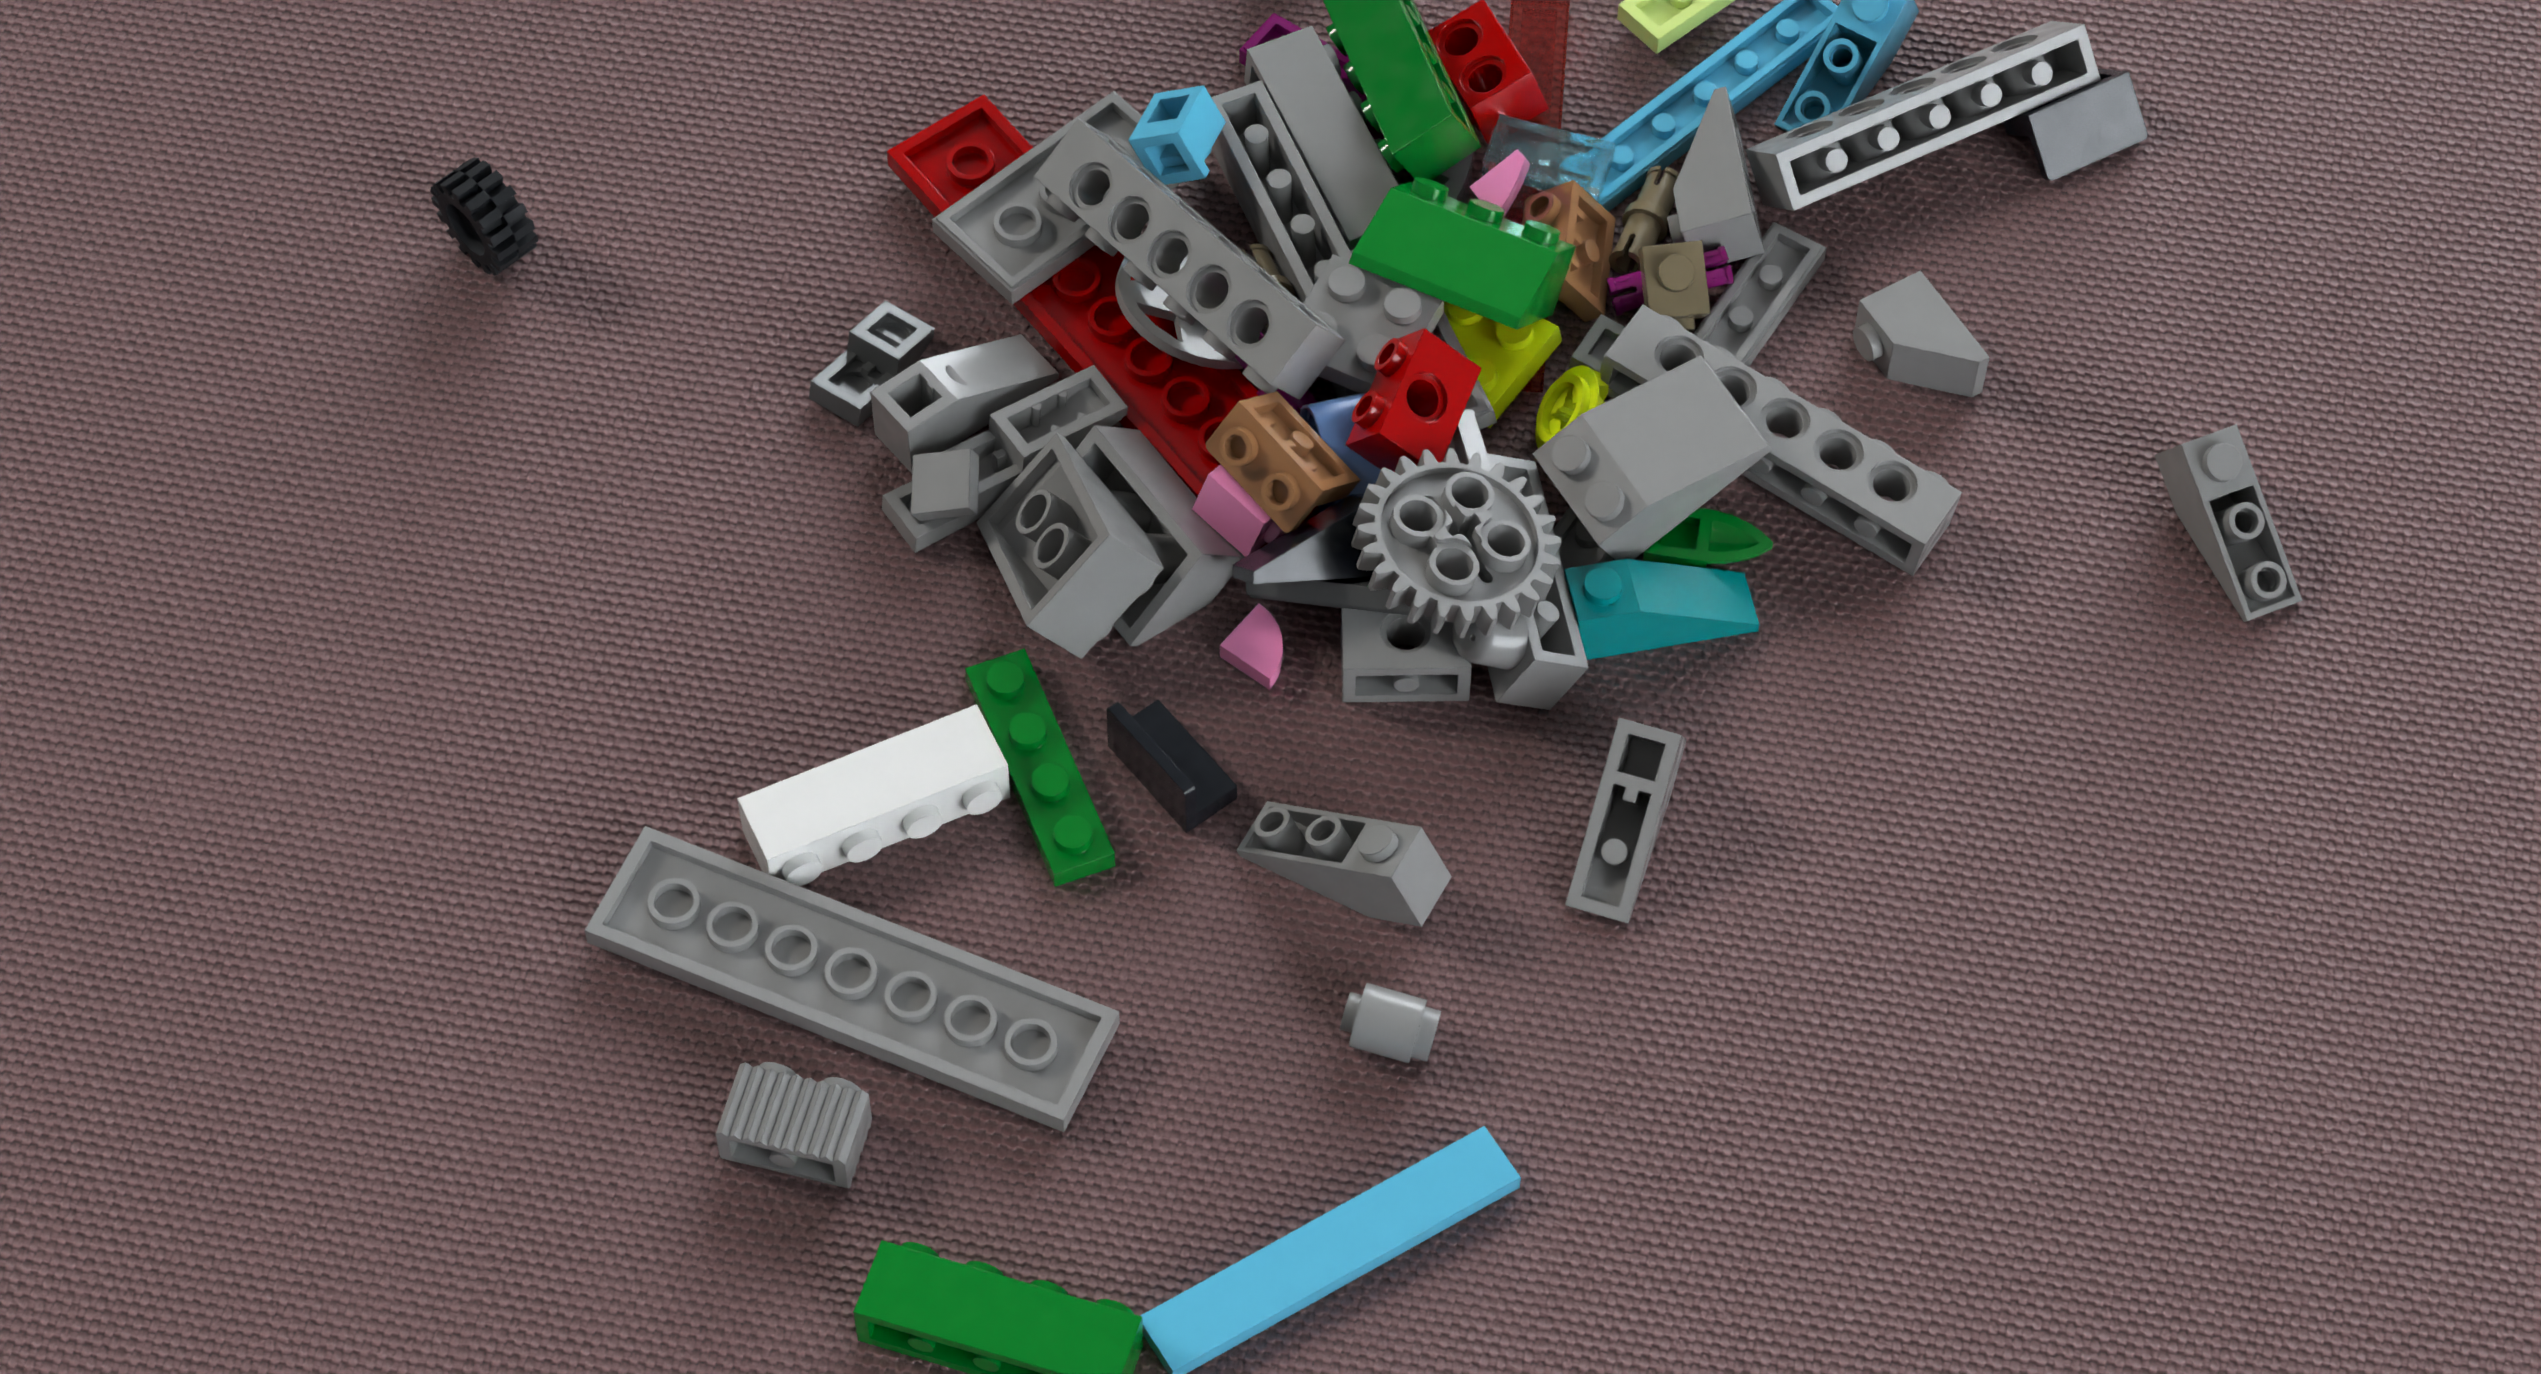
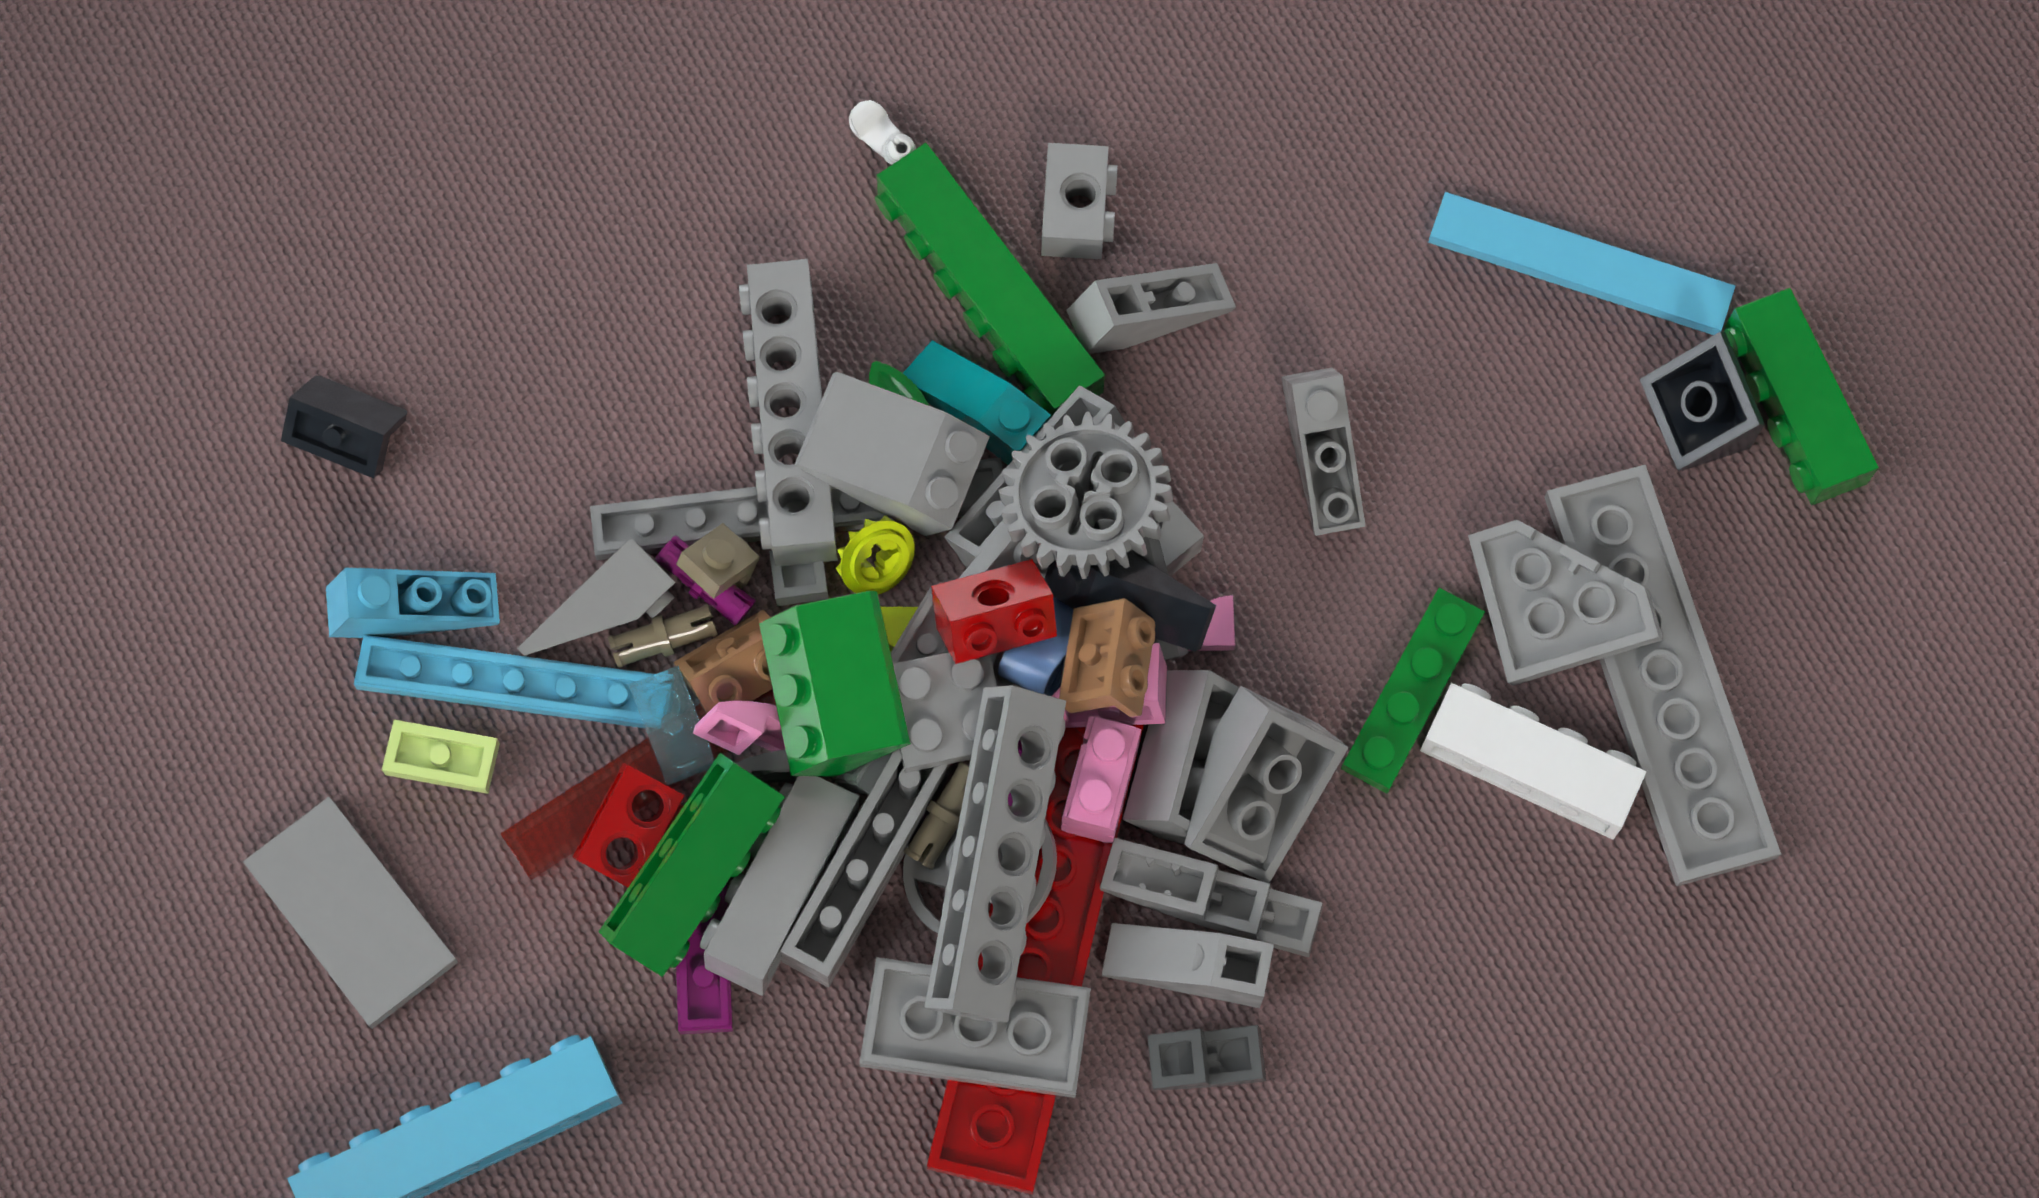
camera: 130 degrees left, 15 degrees up
(795, 1123) = (1785, 618): light grey brick -> none
(945, 484) = (1278, 903): light grey tile -> none
(999, 920) = (1555, 603): none -> light grey plate
(1073, 1234) = (1703, 404): none -> black slope
(1169, 763) = (1343, 609): black panel -> none
(1176, 408) = (1100, 779): none -> bright pink brick
(1177, 134) = (880, 979): medium azure brick -> none
(1390, 1023) = (1411, 335): light grey brick -> none
(1778, 696) = (985, 280): none -> green brick
(1789, 800) = (1070, 173): none -> light grey brick
(1919, 338) = (624, 394): light grey slope -> none
(1923, 115) = (458, 507): light grey brick -> none
(2041, 727) = (872, 125): none -> white piece
(2230, 521) = (618, 115): light grey slope -> none

